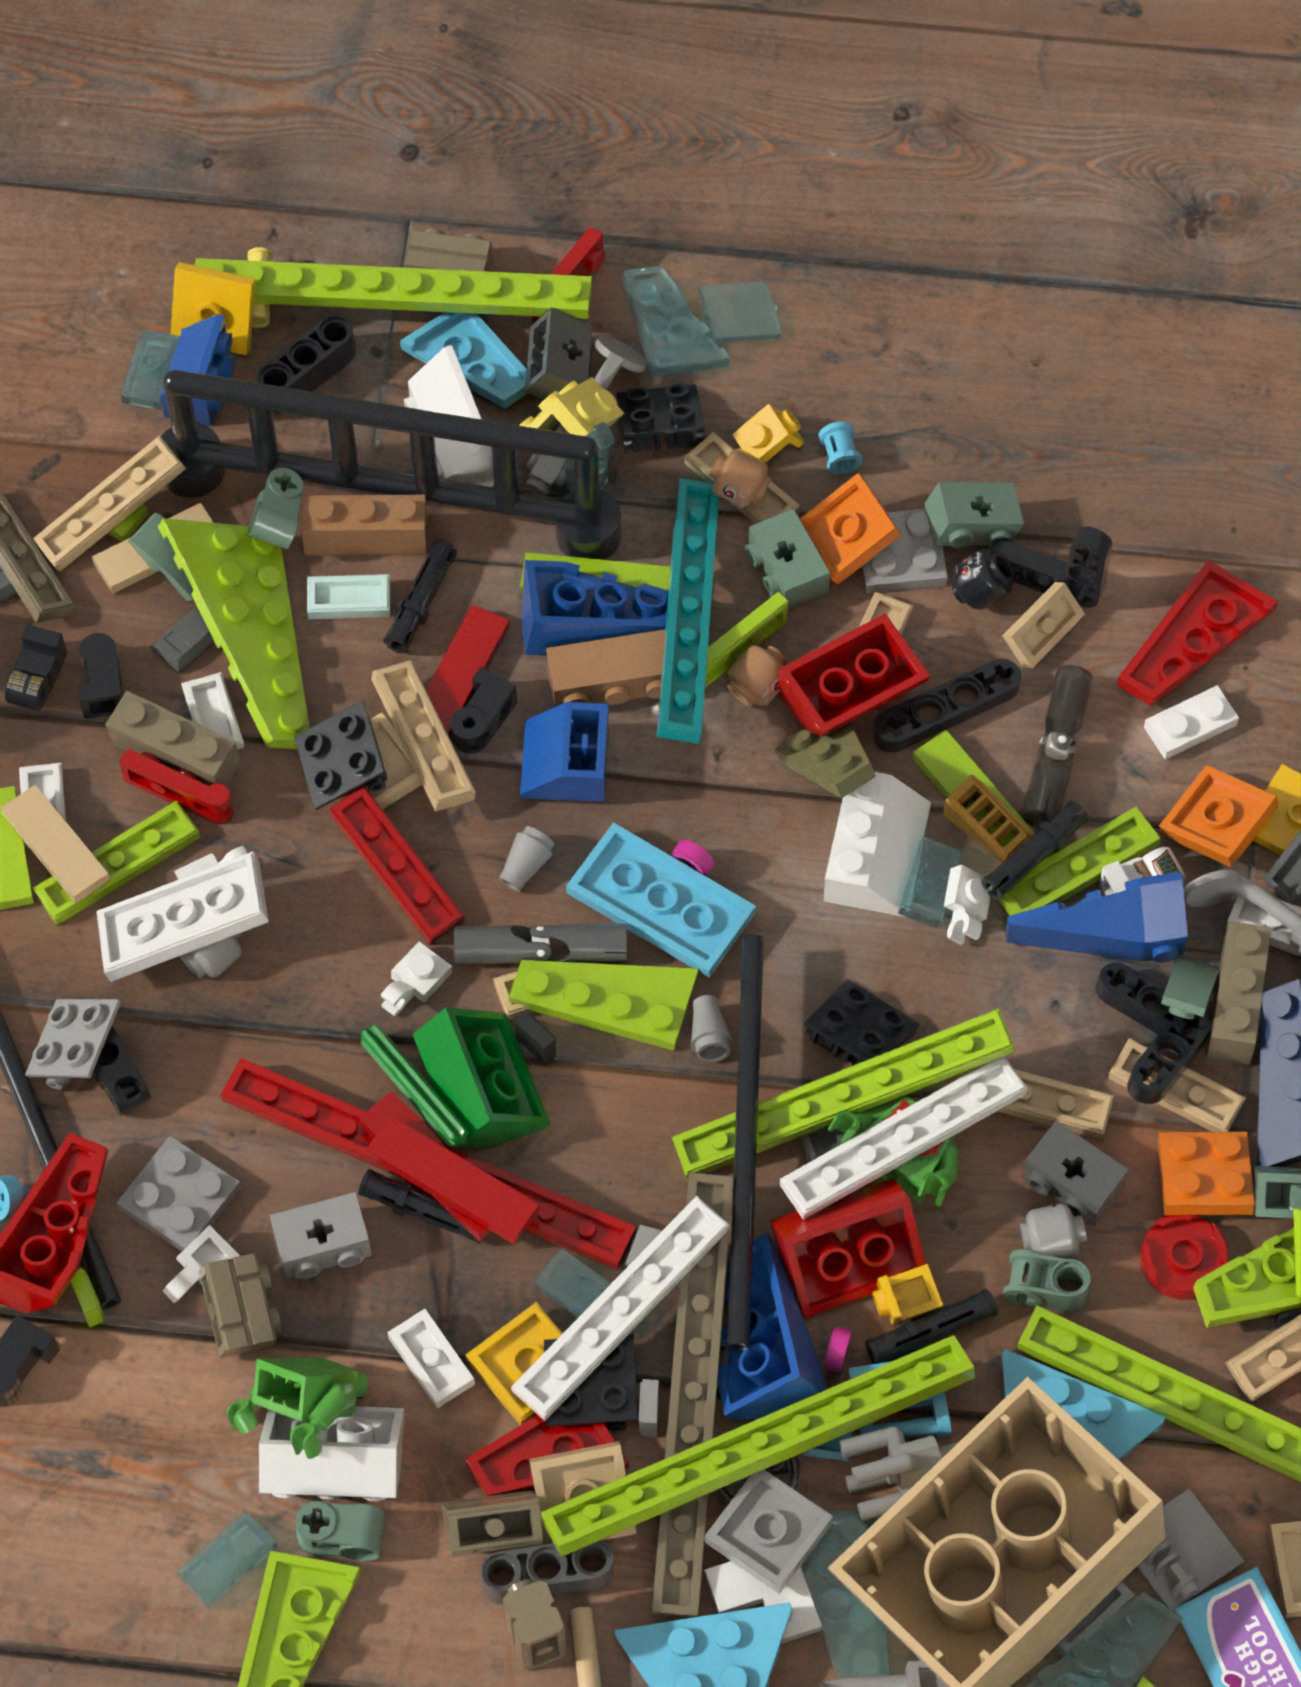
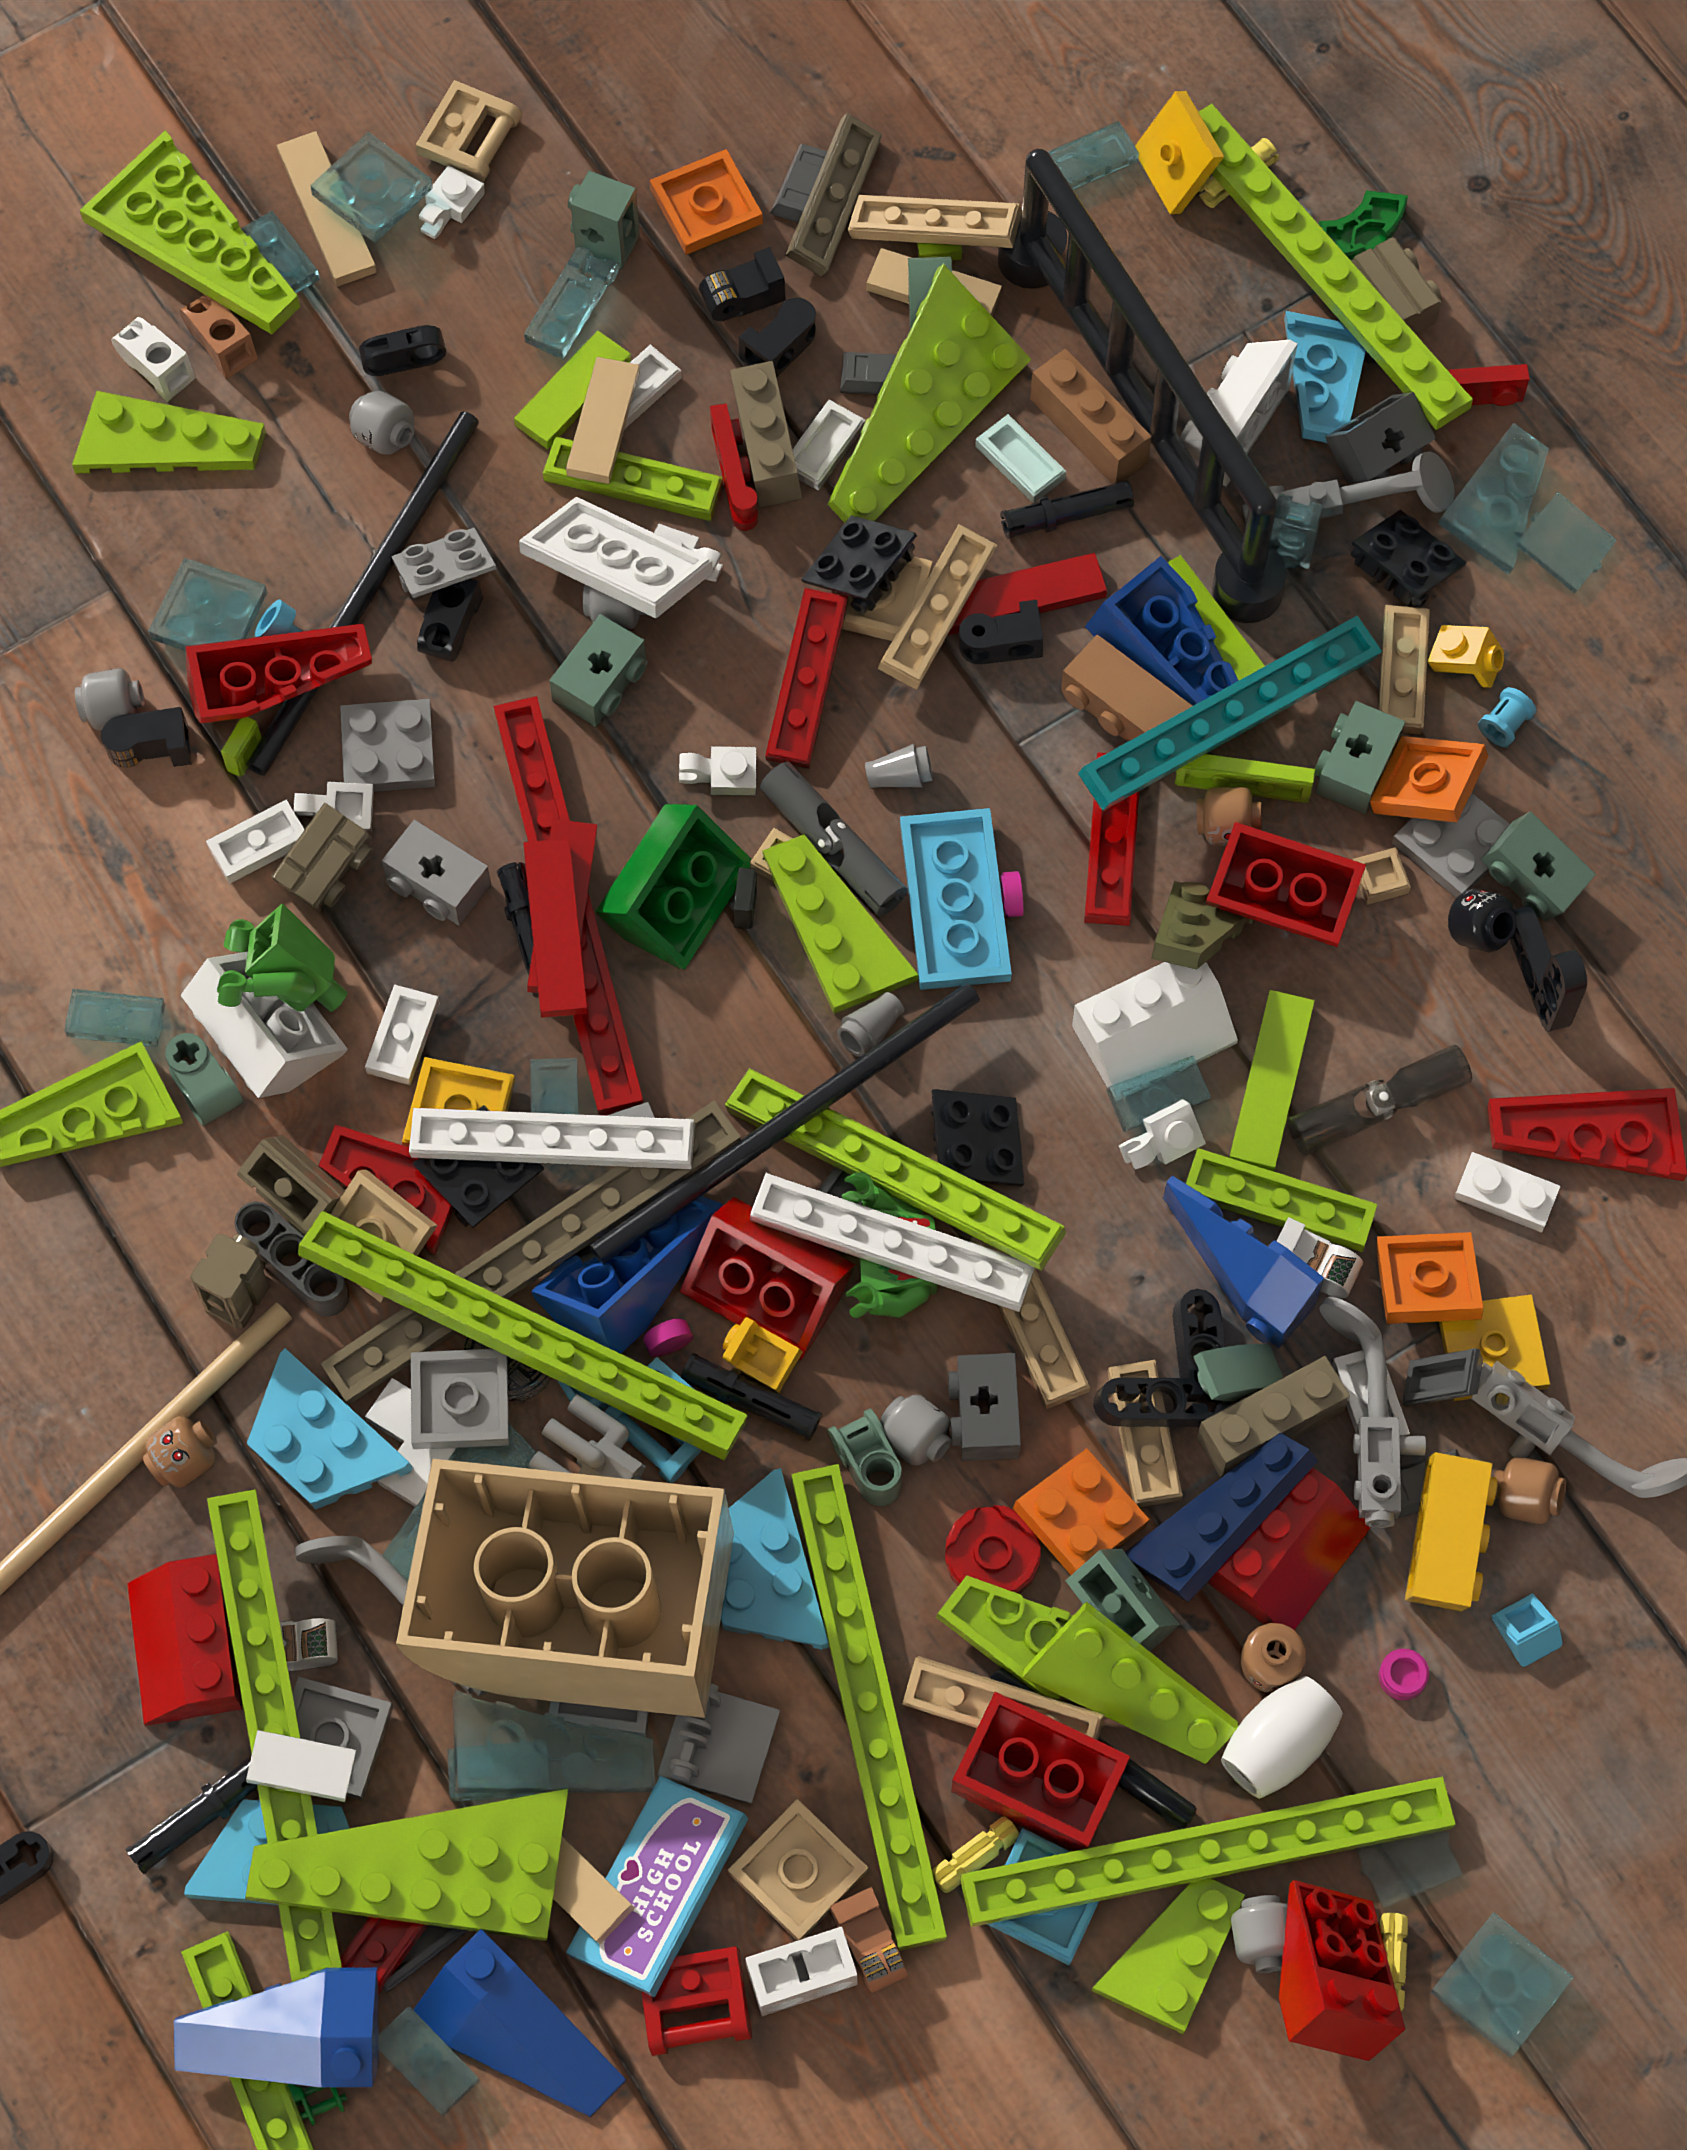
camera: 50 degrees right, 5 degrees up
(175, 1345) = (256, 841): none -> white plate
(204, 350) = (1120, 187): blue slope -> none
(262, 1023) = (601, 649): none -> sand green brick
(277, 508) = (1034, 342): sand green piece -> none
(312, 347) = (1181, 271): black beam -> none
(377, 237) = (1368, 224): none -> green tile
(414, 1087) = (619, 840): green axle -> none
(566, 753) = (1021, 728): blue slope -> none
(577, 408) = (1336, 484): light yellow bracket -> none
(648, 1408) = (494, 1229): light grey tile -> none
(710, 771) = (1111, 862): none -> red tile
(740, 478) = (1395, 659): medium nougat head -> none
(943, 699) = (1338, 991): black beam -> none
(997, 811) = (1253, 1057): pearl gold slope -> none
(1043, 625) = (1486, 1002): tan plate -> none
(1048, 839) = (1257, 1152): black pin -> none

